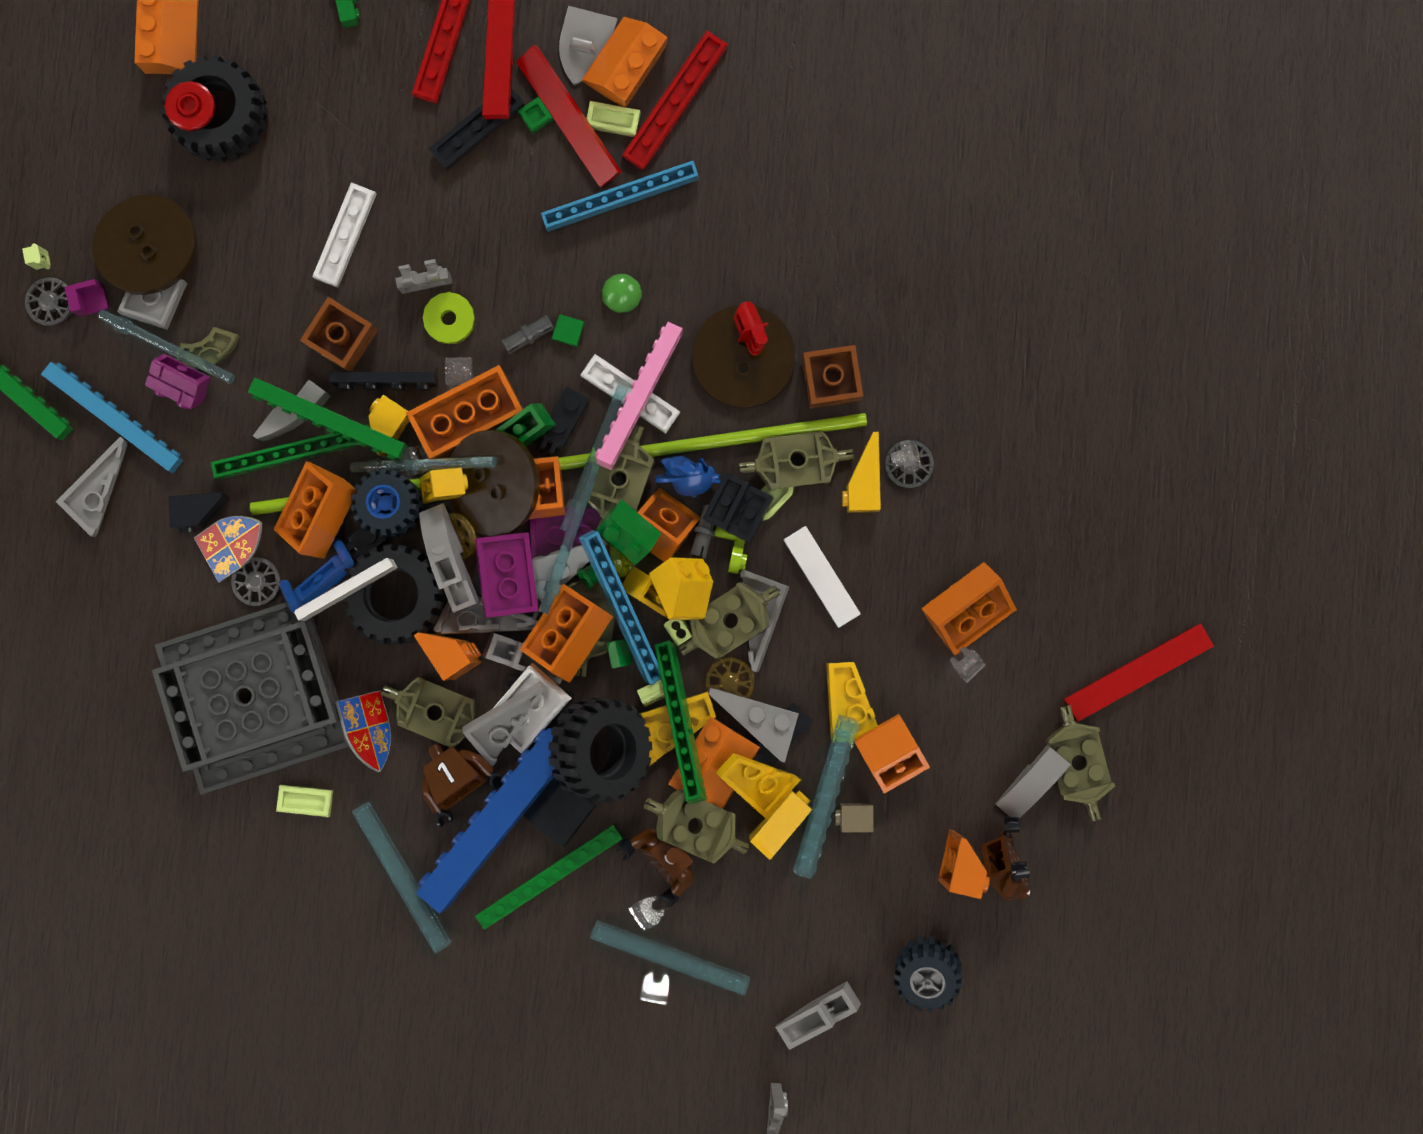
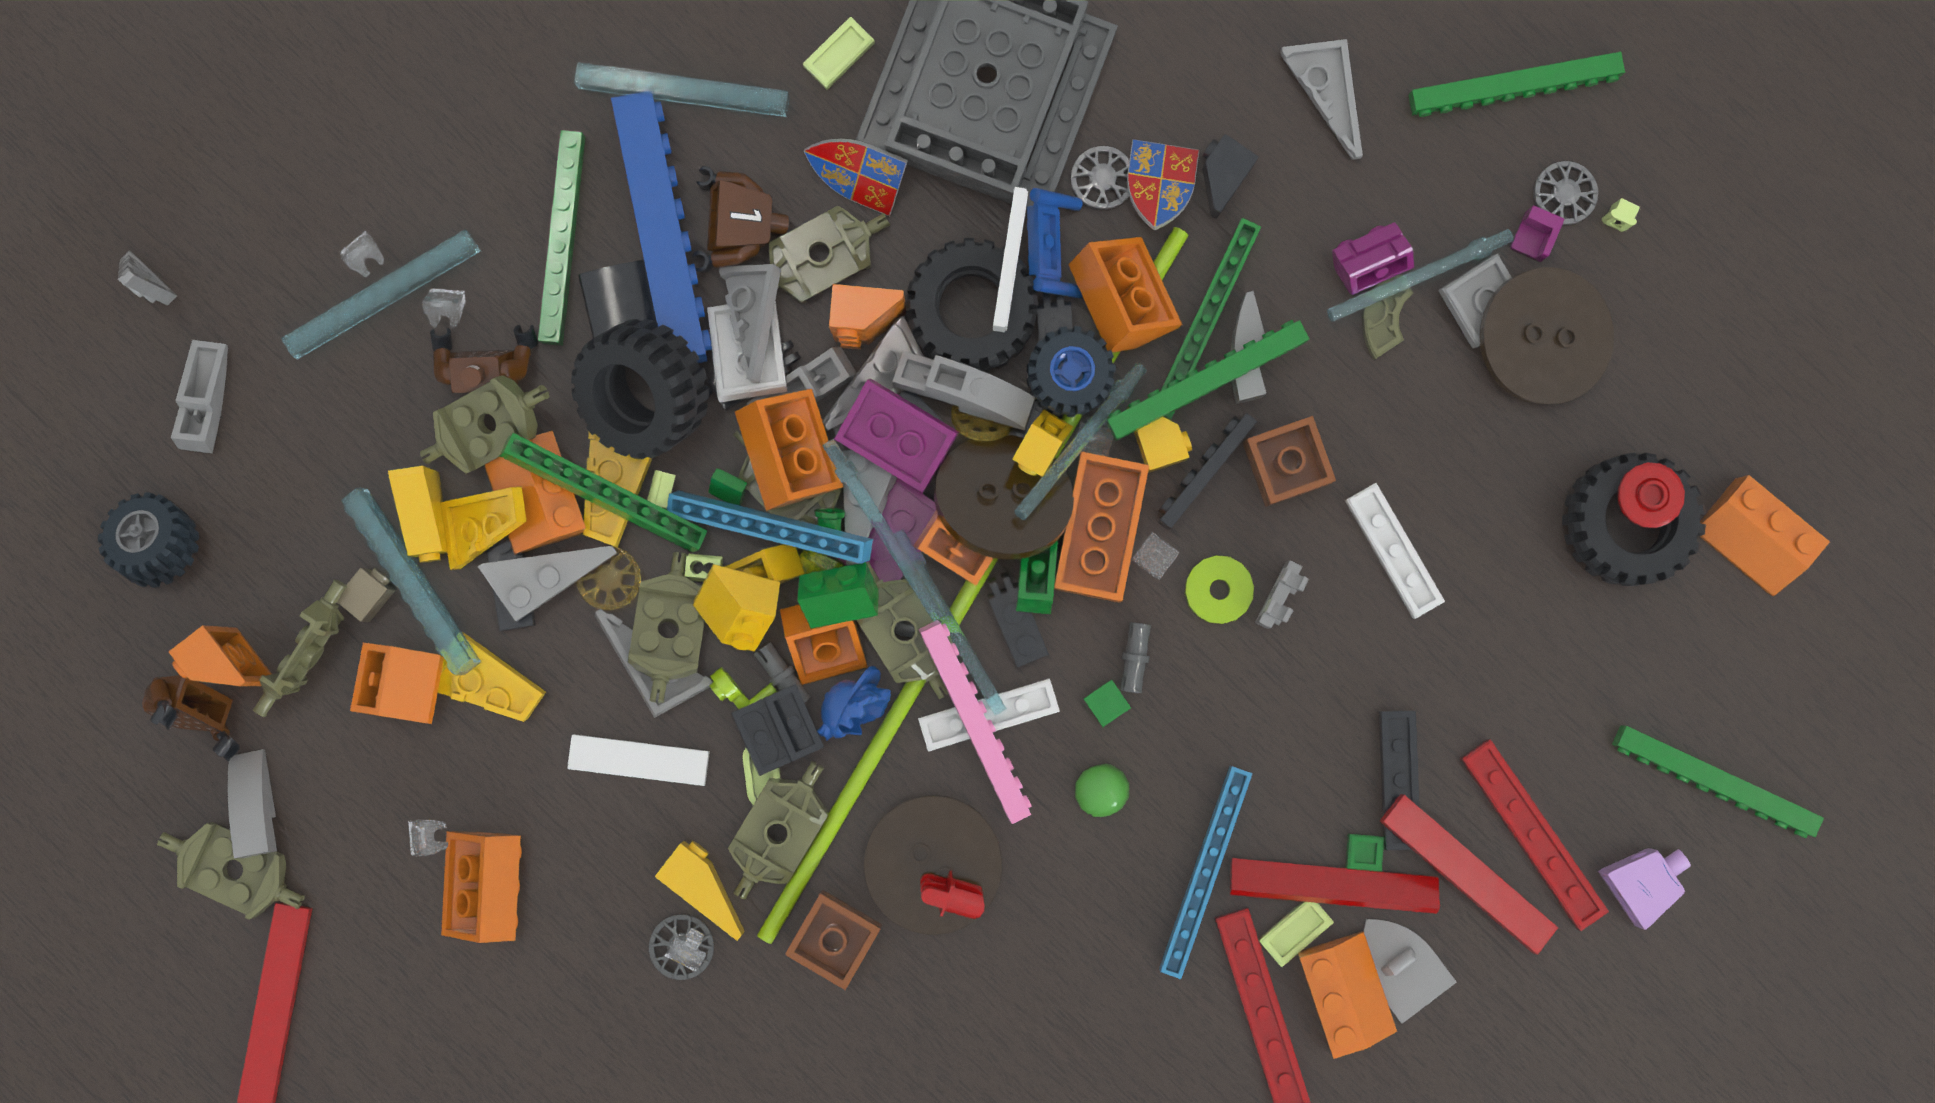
camera: 130 degrees right, 0 degrees up
(112, 417) = (1391, 163): dark azure piece -> none
(907, 824) = (292, 670): none -> olive plate

